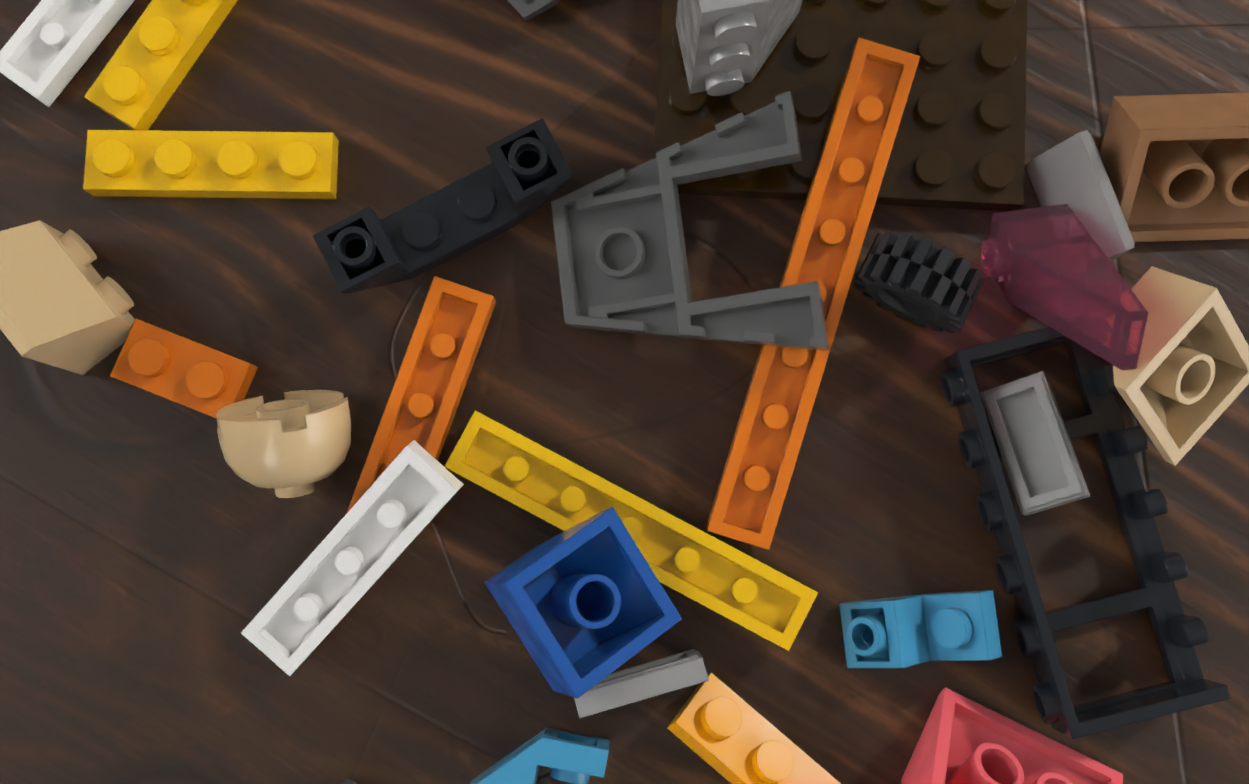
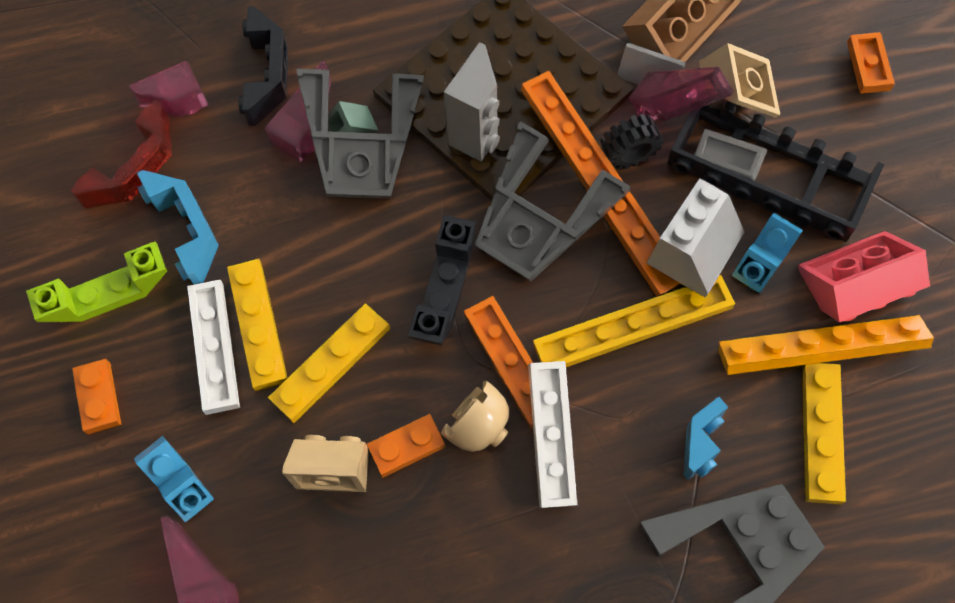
camera: 45 degrees left, 15 degrees down
(583, 603) = (649, 361): blue slope -> none
(643, 682) = (700, 369): light grey tile -> none
(841, 517) = (699, 239): none -> light grey slope

